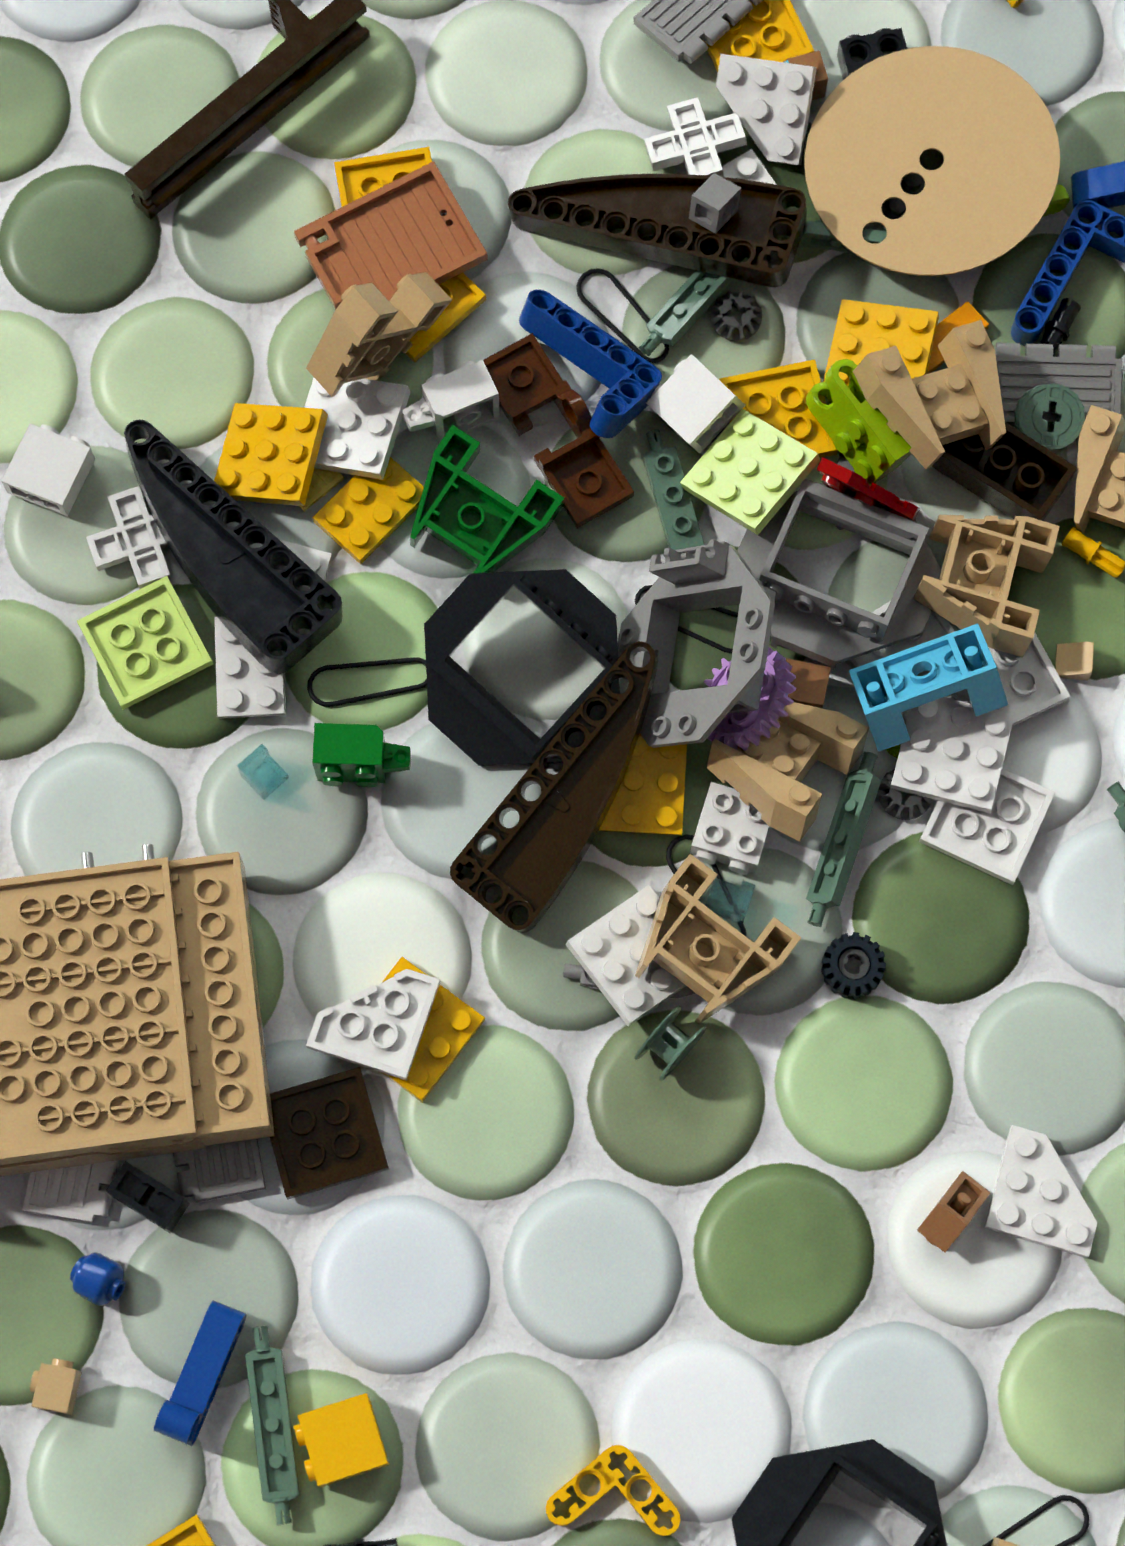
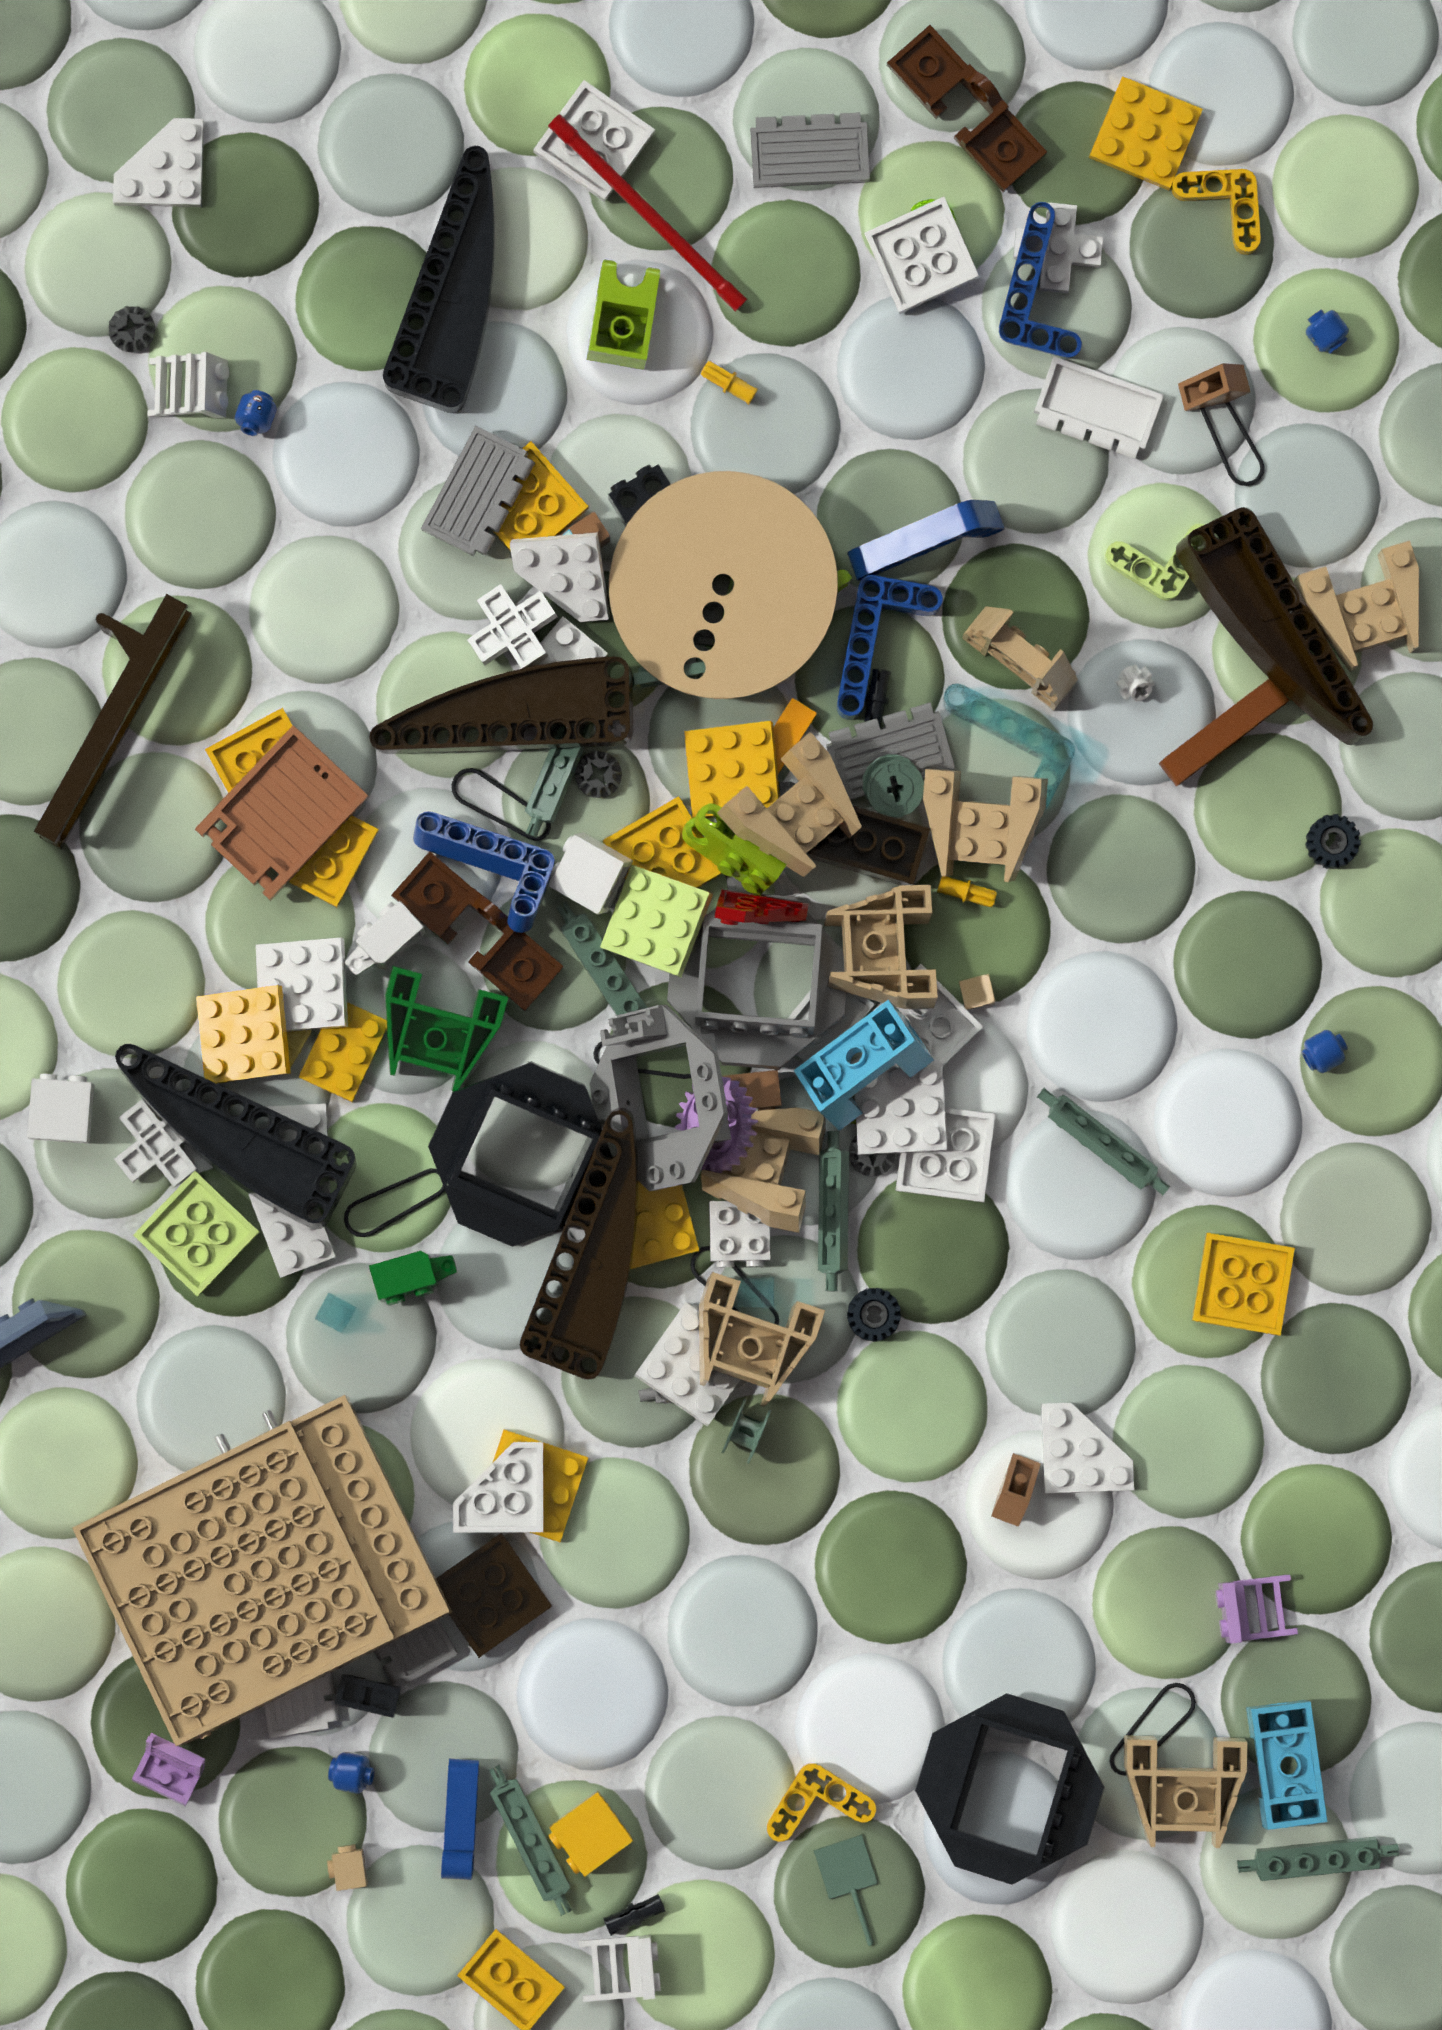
camera: 25 degrees left, 10 degrees up
(372, 331) = (301, 903): tan wedge -> none
(714, 203) = (550, 692): light grey brick -> none

